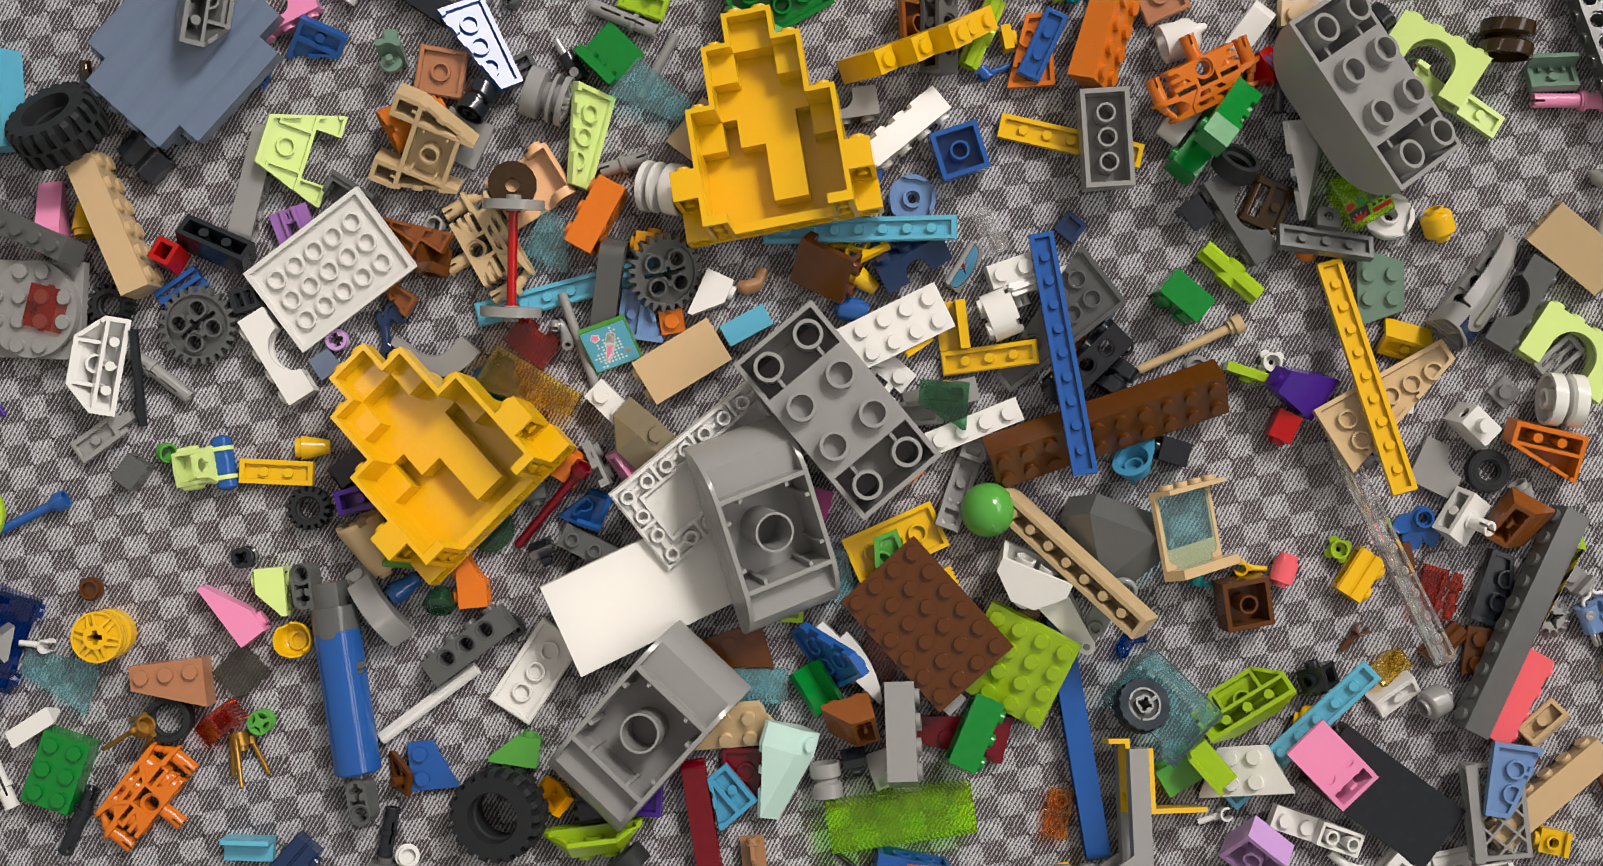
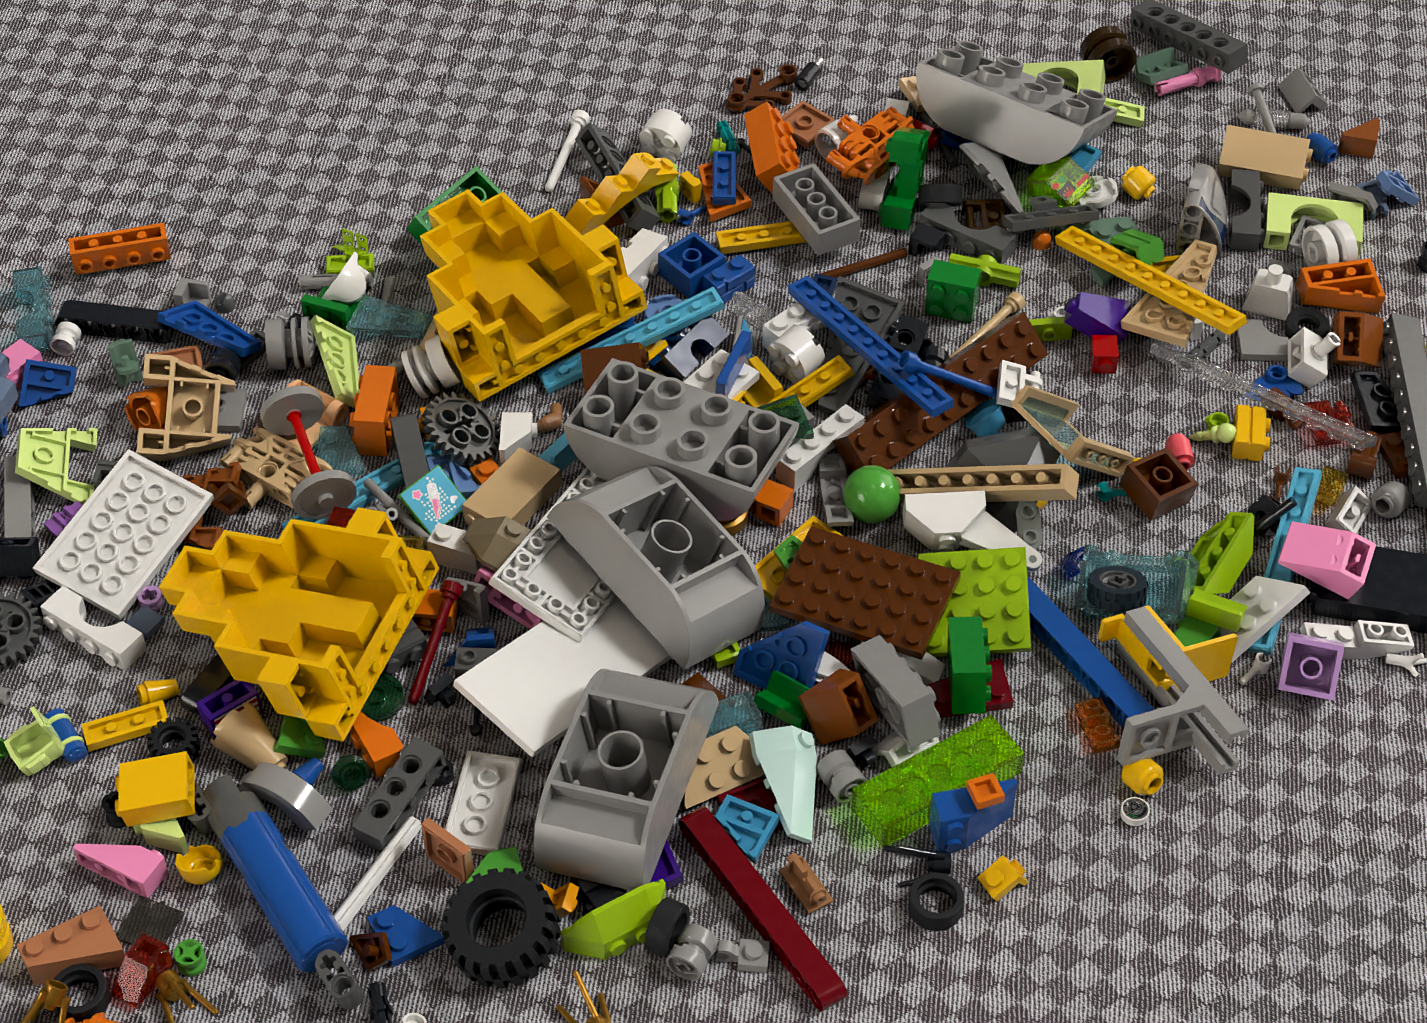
camera: 20 degrees left, 40 degrees down
(272, 572) = (155, 789): none -> yellow brick
(485, 722) = (447, 851): none -> nougat plate
(626, 43) = (349, 284): none -> white hat
(926, 325) = (734, 364): none -> blue tile
(985, 184) = (730, 277): none -> blue brick
(1082, 413) = (911, 362): none -> blue piece
(1122, 210) = (867, 263): none -> reddish brown bar
(1170, 449) = (1013, 378): none -> white plate
(1178, 252) = (924, 270): none -> light grey tile
(1317, 695) = (1274, 515): none -> black bar
(1334, 569) = (1223, 433): none -> yellowish green bar
(1382, 323) = (1139, 245): none -> bright green brick

